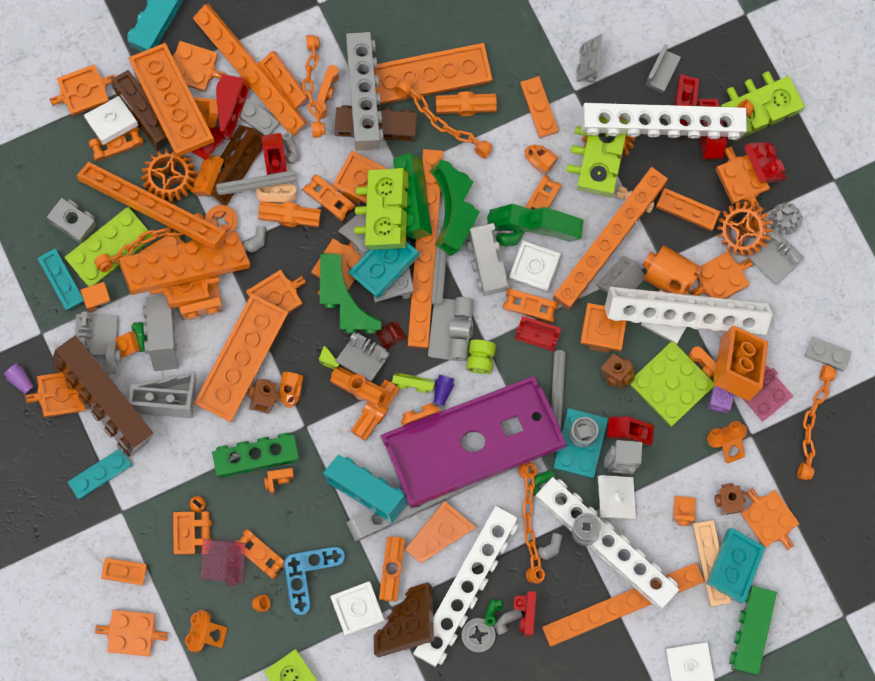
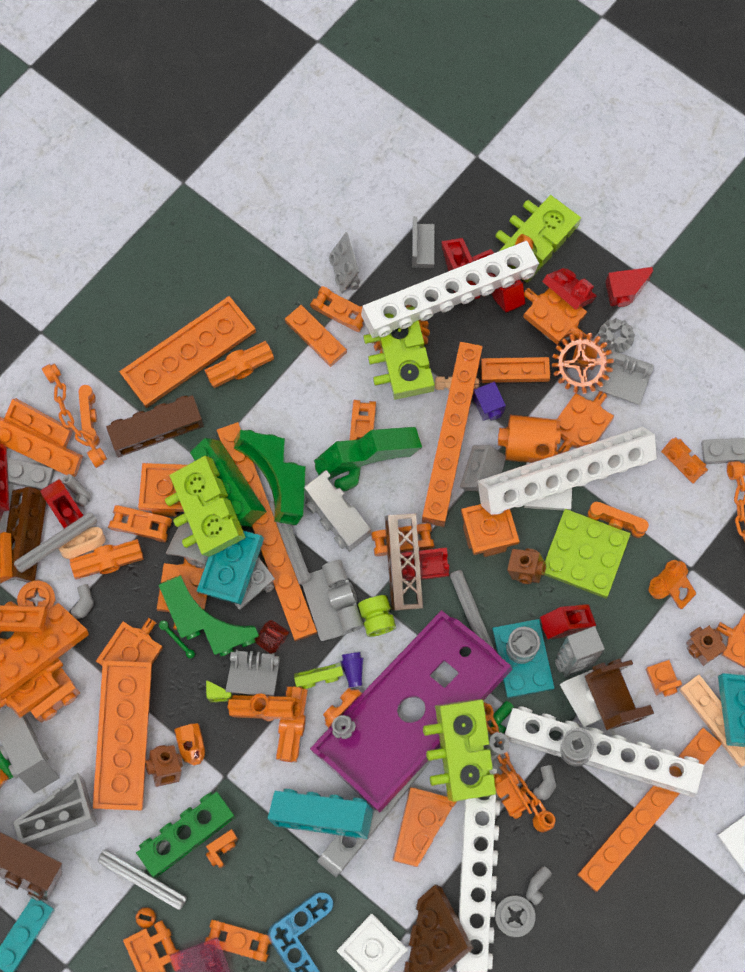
camera: 20 degrees left, 5 degrees down
(207, 474) = (142, 879): none -> axle
(311, 287) = (163, 625): none -> green hinge
(362, 44) = (150, 443): light grey brick -> none
(393, 555) = (385, 872): orange piece -> none
(409, 427) = (341, 721): none -> light grey plate
(482, 148) = (169, 377): orange piece -> none
(490, 611) = (515, 883): green arm -> none
(500, 481) = (465, 760): none -> lime piece
(515, 317) = (394, 562): none -> fence
(519, 532) = (517, 800): none -> orange hinge
(527, 493) = (495, 748): none -> light grey bush
(527, 605) = (553, 858): red hinge -> none
(534, 266) = (387, 495): white plate -> none
(540, 158) = (341, 385): orange rock -> none
(568, 94) = (339, 309): none -> orange plate
(636, 504) = (613, 695): none -> reddish brown panel
(653, 226) = (489, 402): none -> dark purple brick
(720, 400) = (644, 545): medium lavender brick -> none
(741, 363) = (648, 498): orange brick -> none
(770, 397) = (683, 519): clear pink hinge -> none
(792, 354) = (679, 455): none -> orange hinge
(815, 181) = (626, 285): none -> red slope

